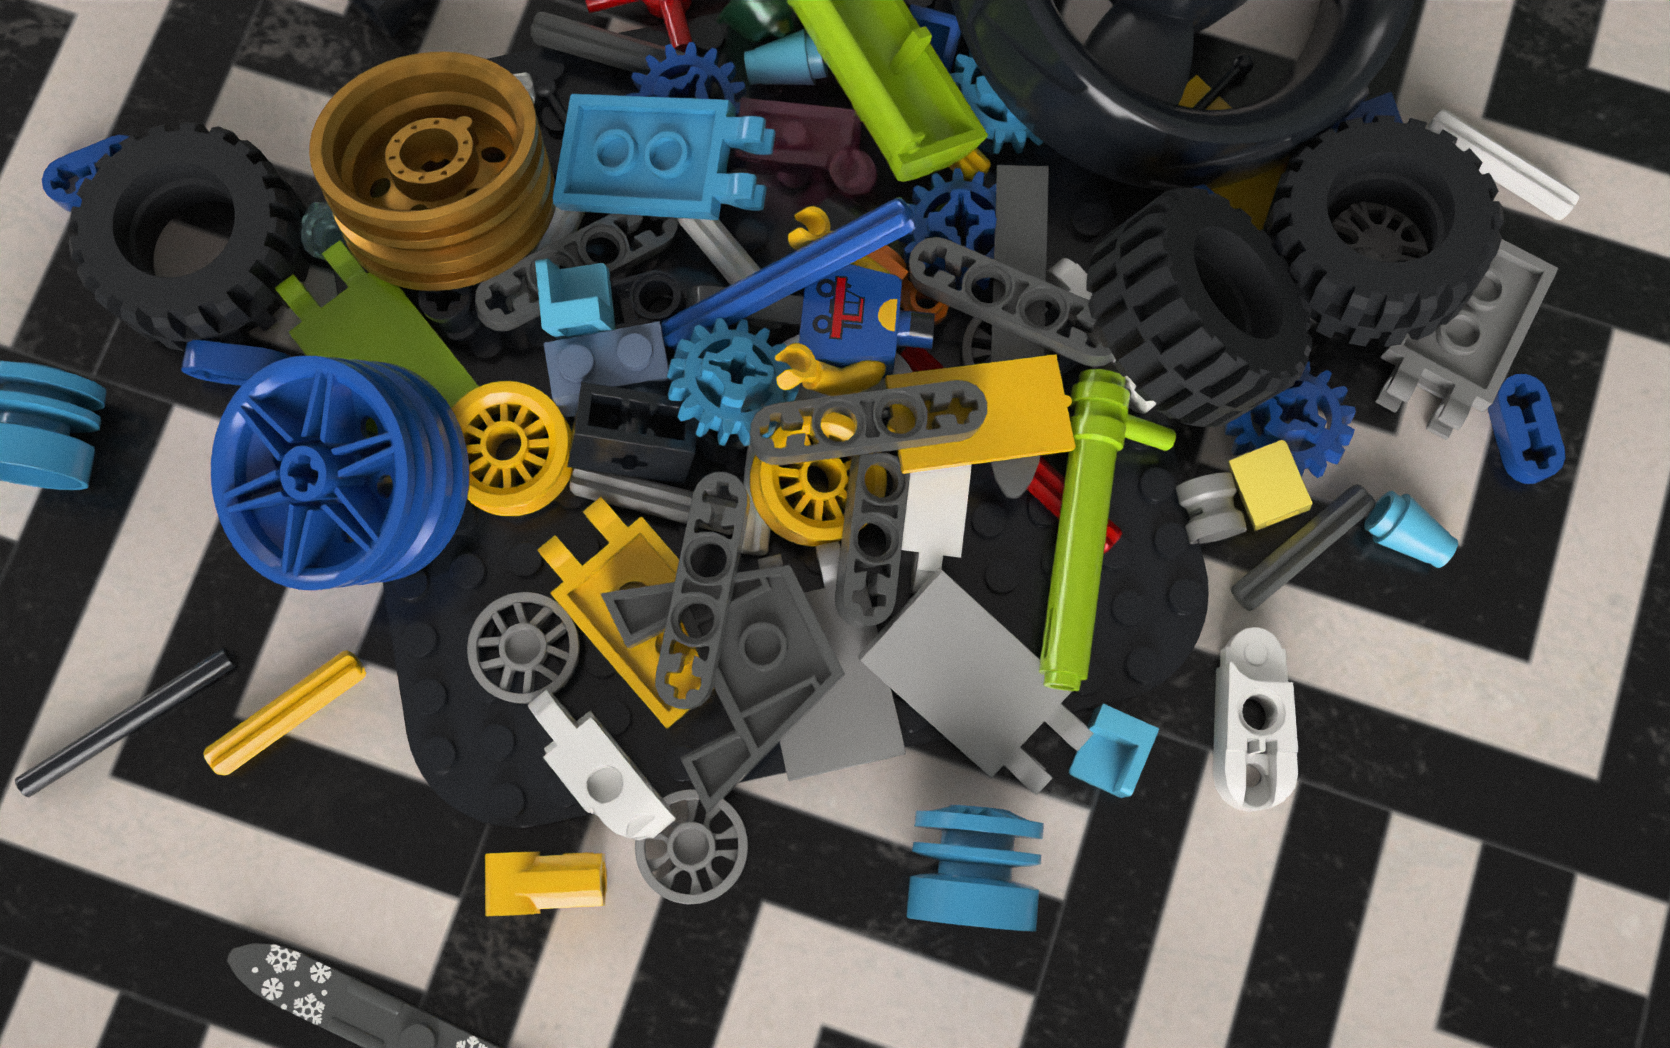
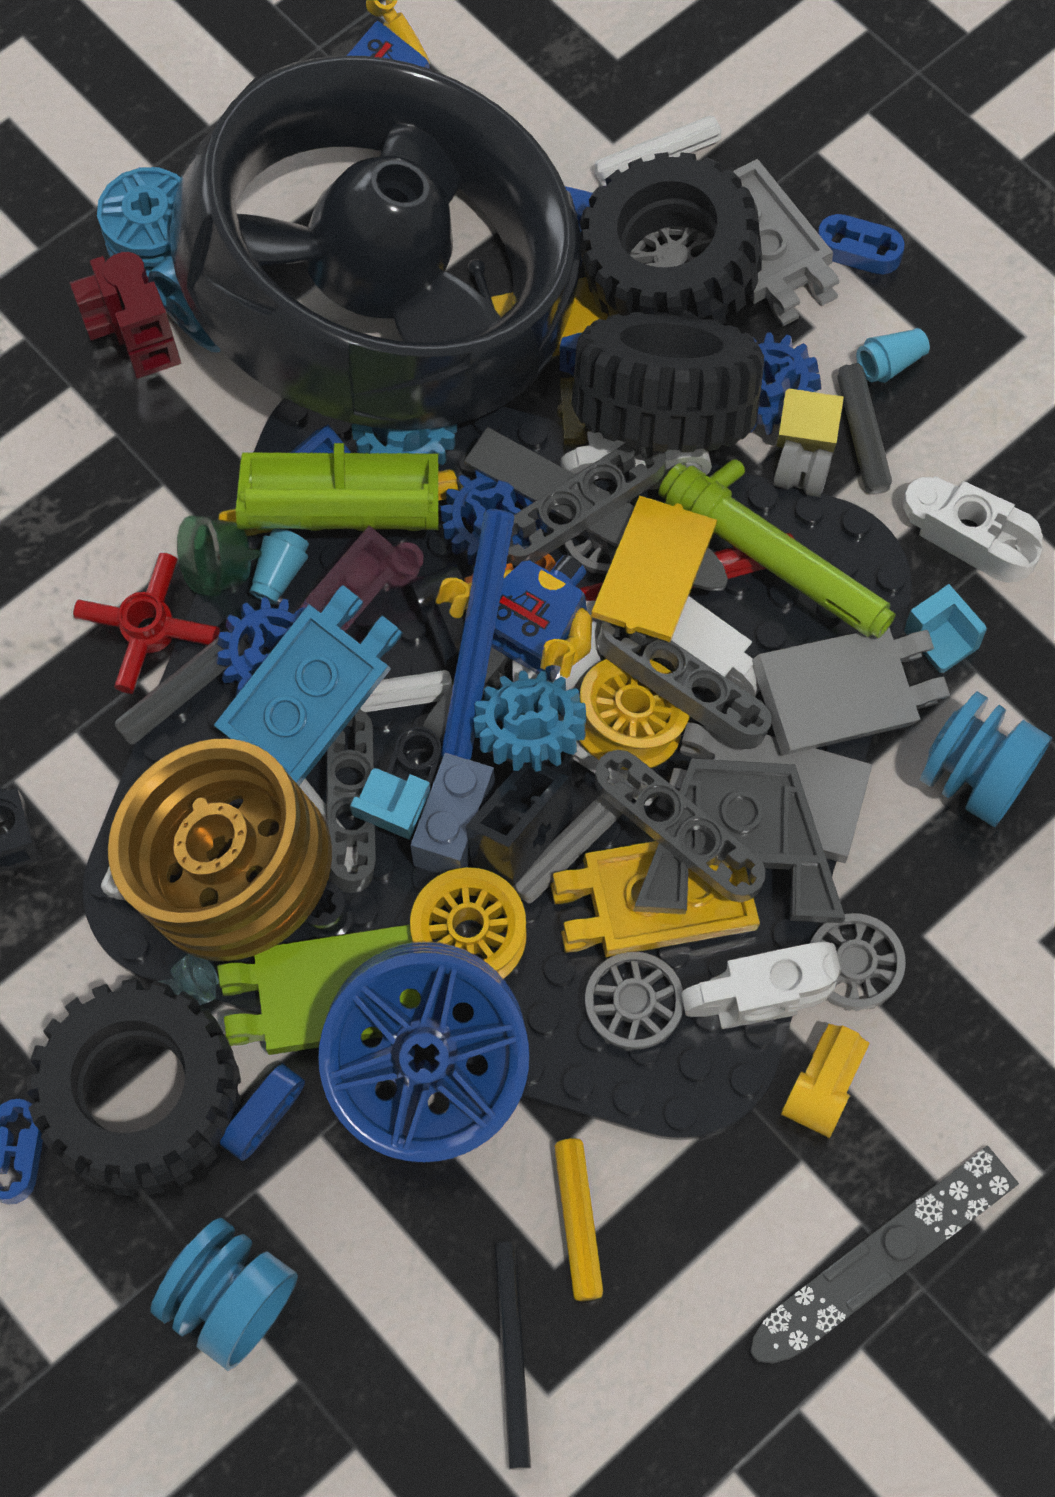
camera: 60 degrees left, 10 degrees down
(866, 413) = (620, 636): dark grey beam -> none

